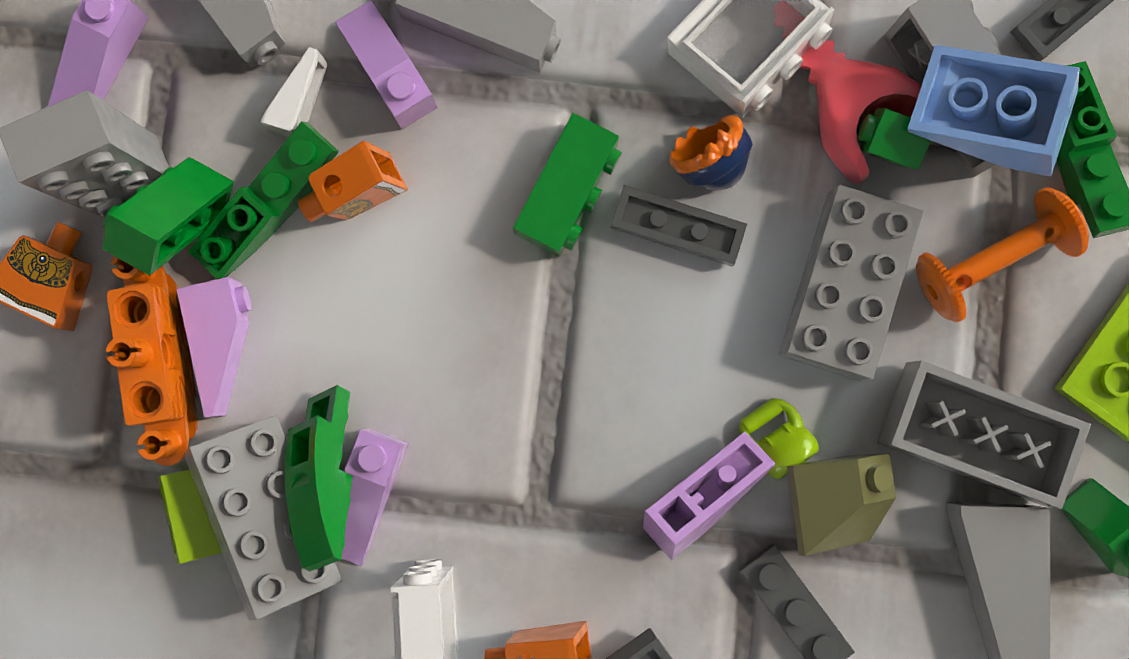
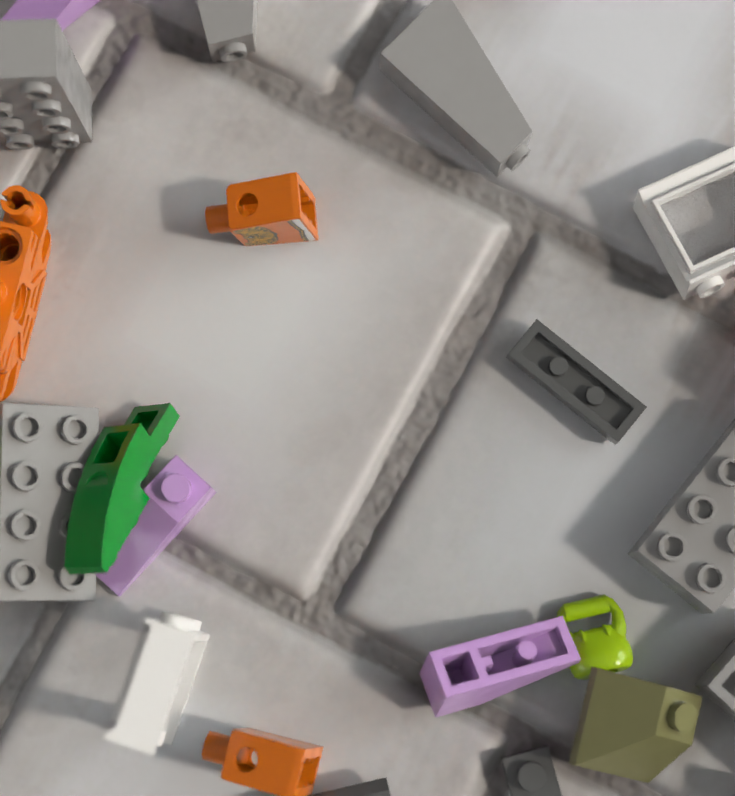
camera: 20 degrees right, 5 degrees down
(165, 215) = (74, 169): green brick -> none
(216, 333) = (71, 305): lavender slope -> none
(264, 205) = (170, 199): green slope -> none
(297, 95) = (240, 112): white slope -> none
(387, 64) = (348, 110): lavender slope -> none
(568, 186) = (480, 298): green brick -> none
(713, 155) = (639, 325): hair -> none

